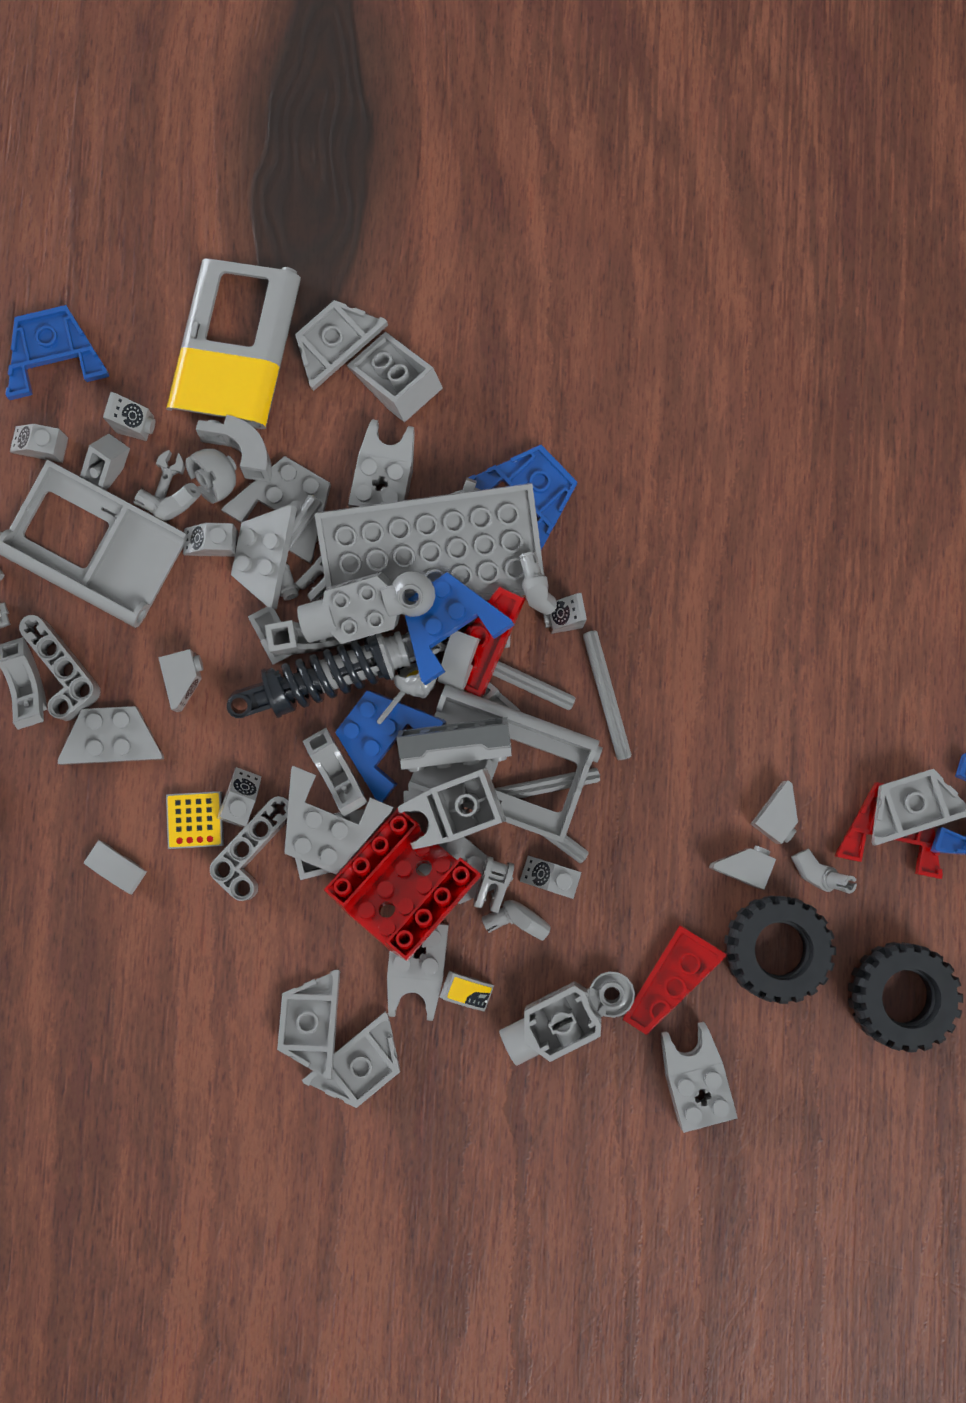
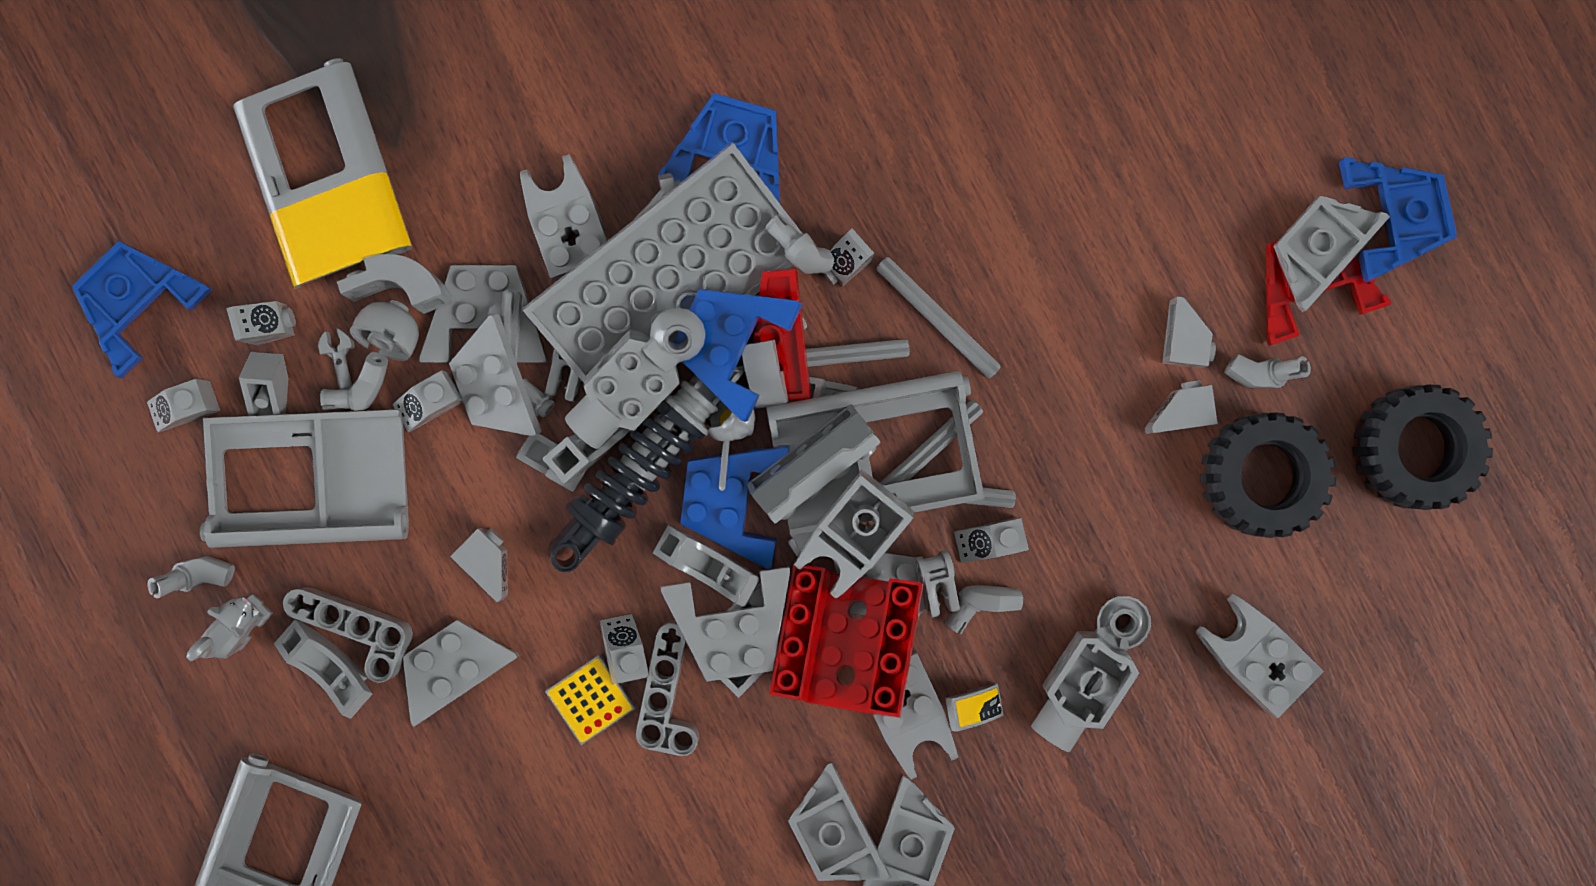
camera: 30 degrees left, 5 degrees up
(115, 867) = (538, 796): light grey slope -> none
(334, 339) = (426, 108): light grey wing -> none
(396, 376) = (516, 110): light grey slope -> none
(675, 975) = (1176, 564): red wing -> none

